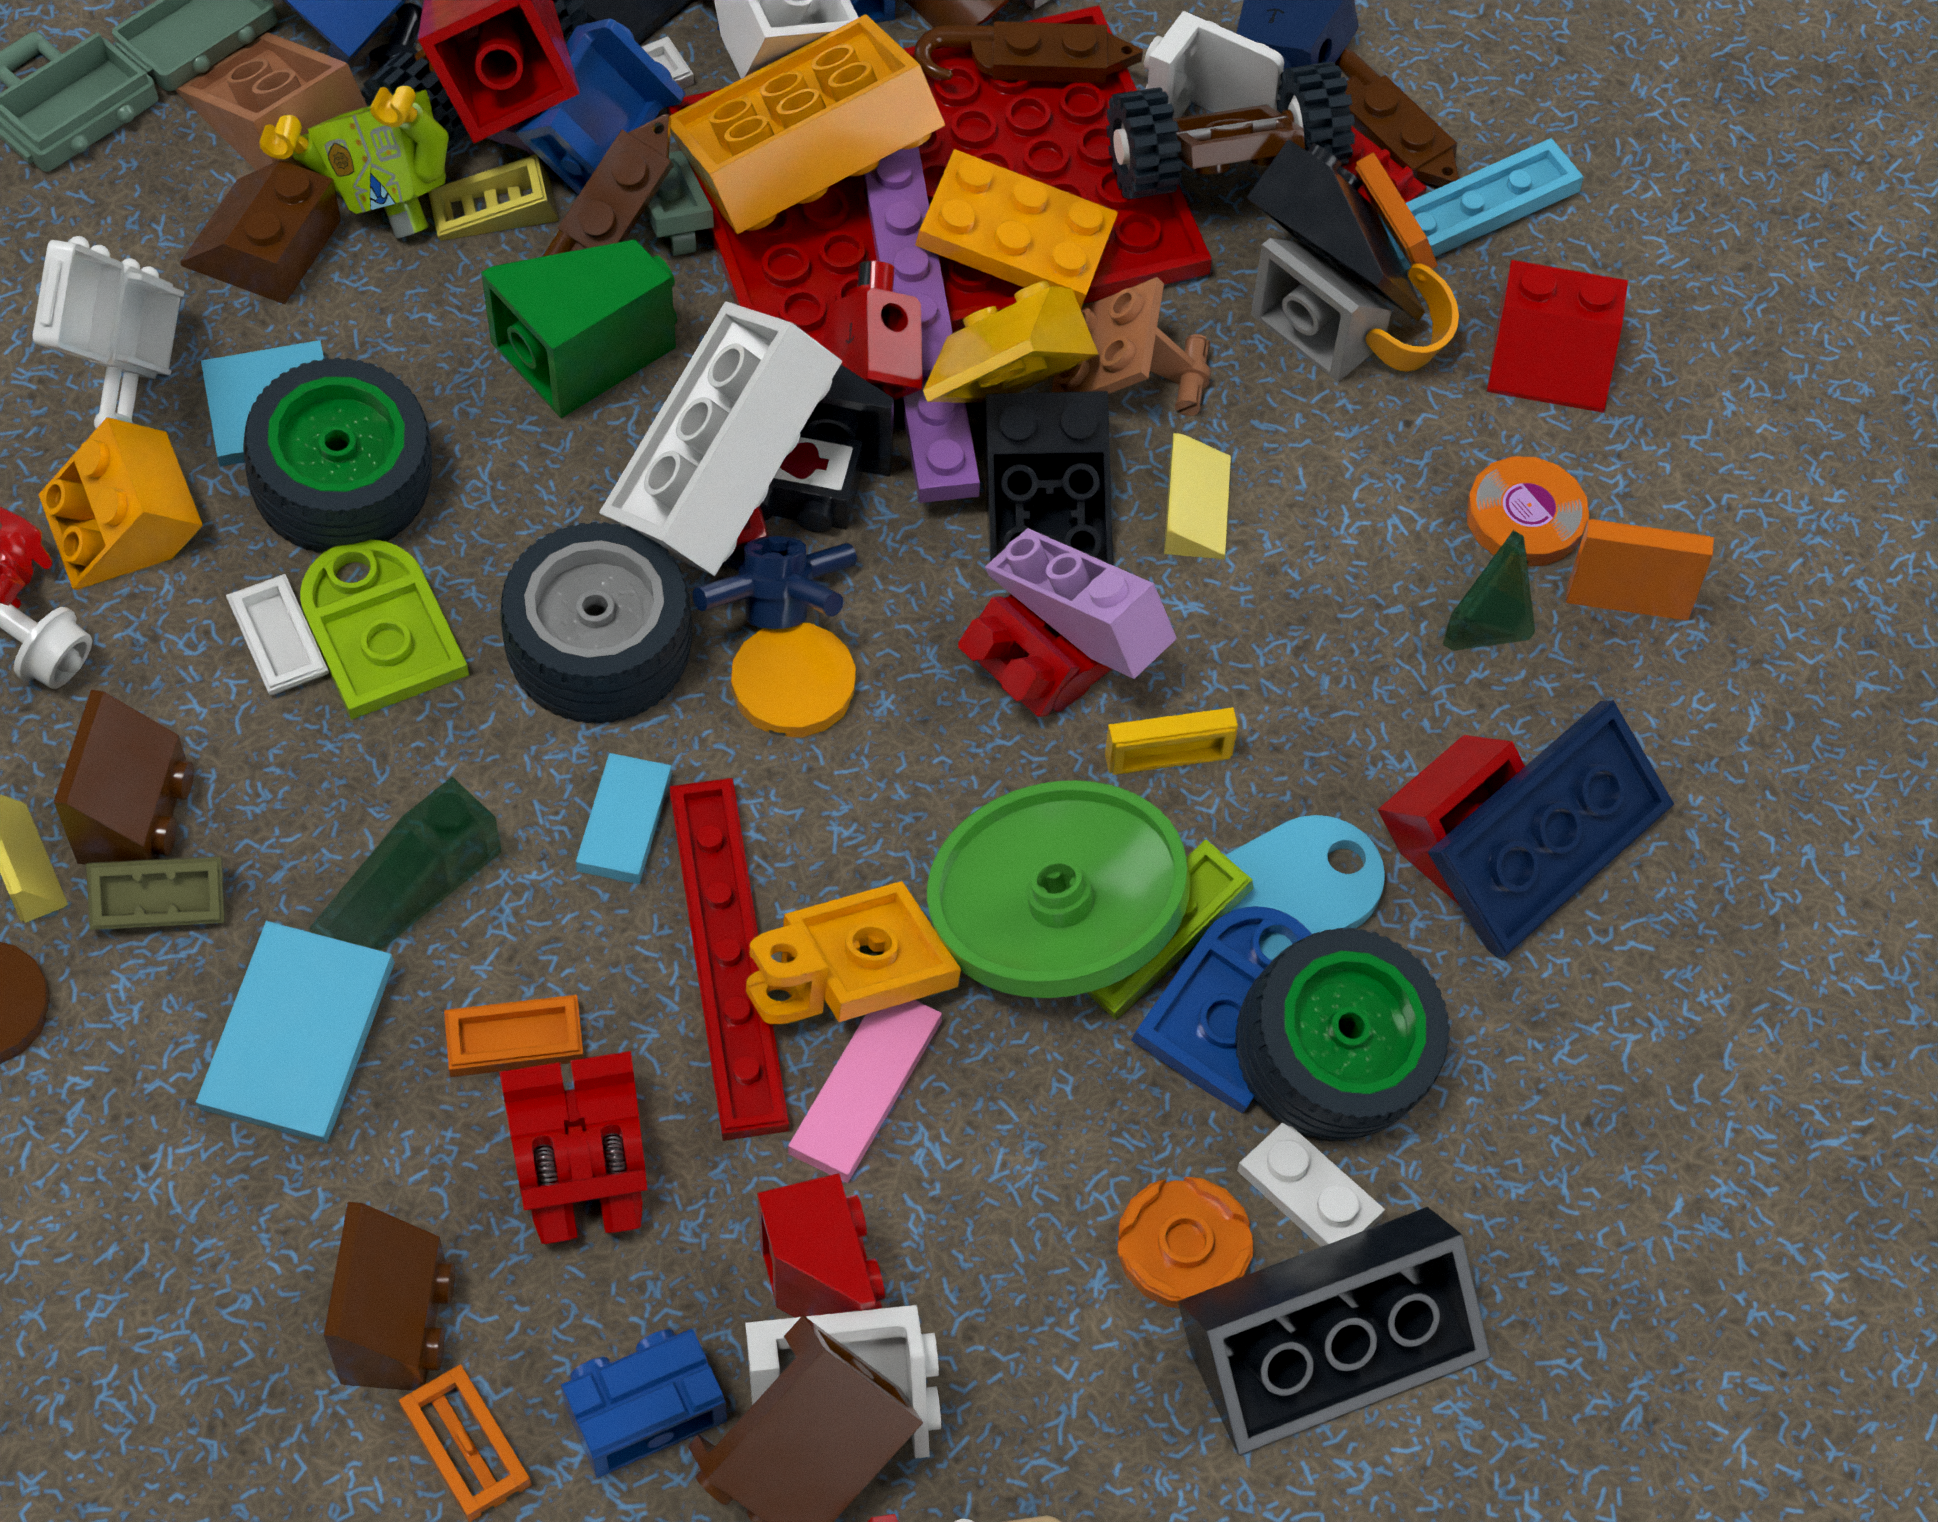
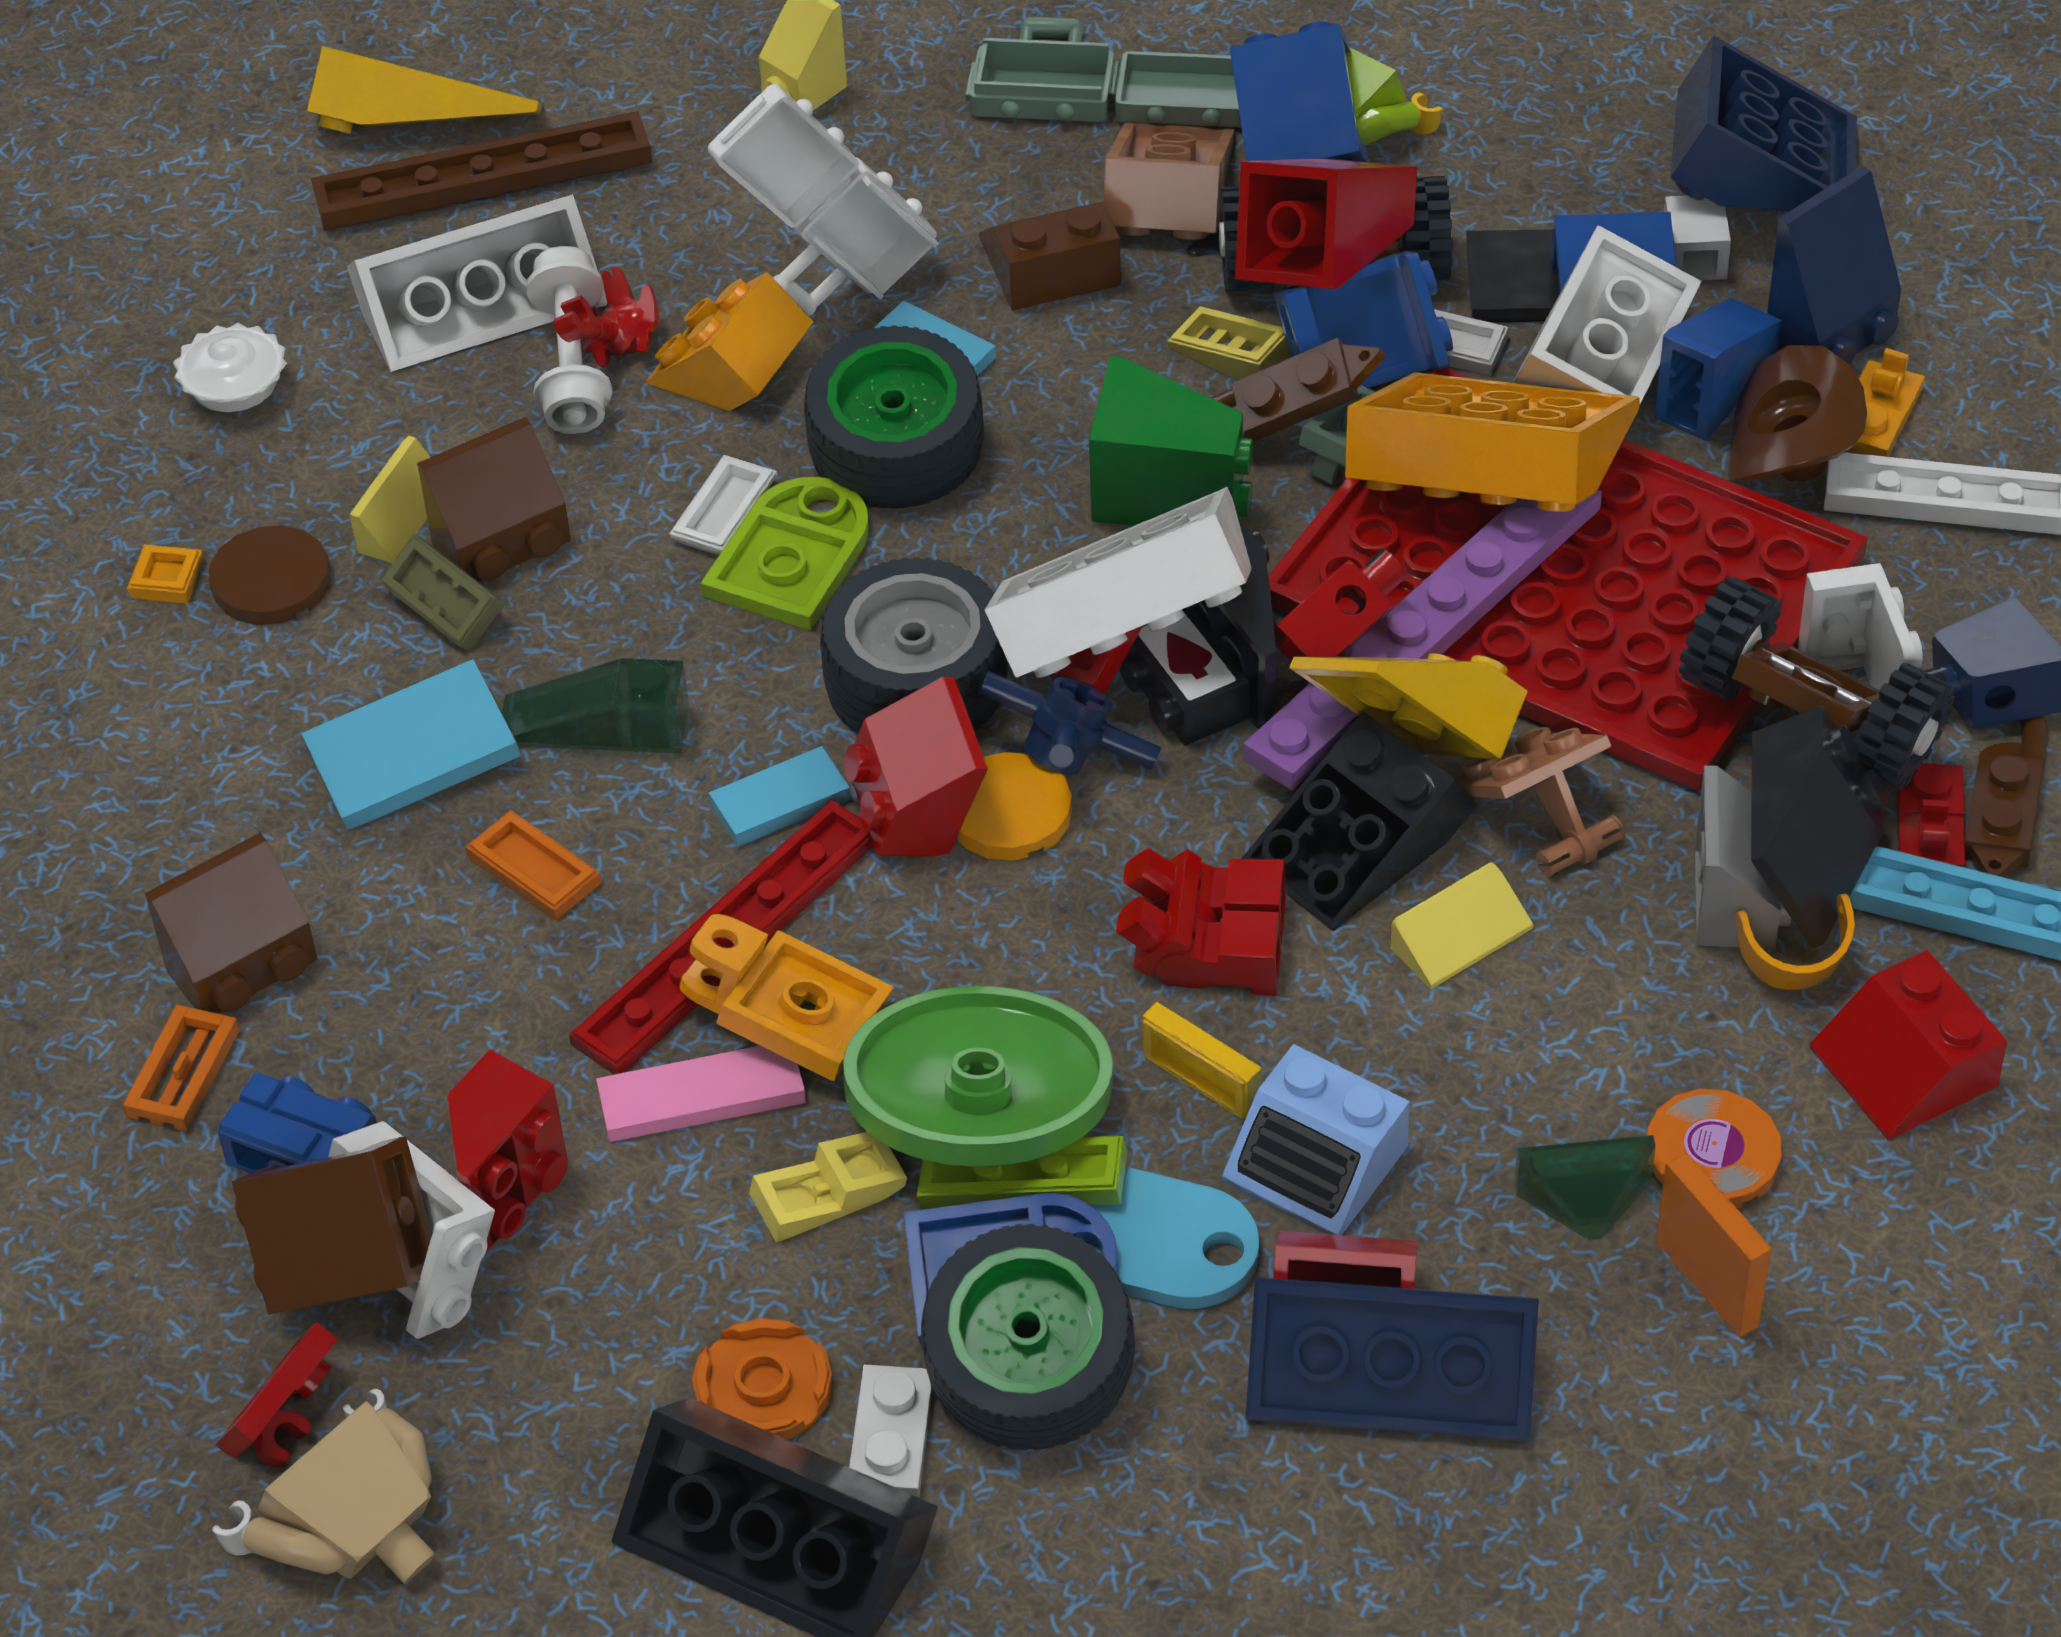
camera: 55 degrees right, 10 degrees down
(373, 154) = (1171, 240): lime torso -> none
(577, 1138) = (470, 952): red hips -> none
(729, 704) = (916, 771): none -> red slope
(1015, 226) = (1560, 630): light orange plate -> none
(1032, 51) = (1753, 521): reddish brown plate -> none
(1042, 1065) = (841, 1180): none -> light yellow slope
(1086, 600) = (1239, 901): lavender slope -> none
(1313, 727) = (1318, 1141): none -> light blue slope
(1394, 212) = (1879, 847): orange tile -> none

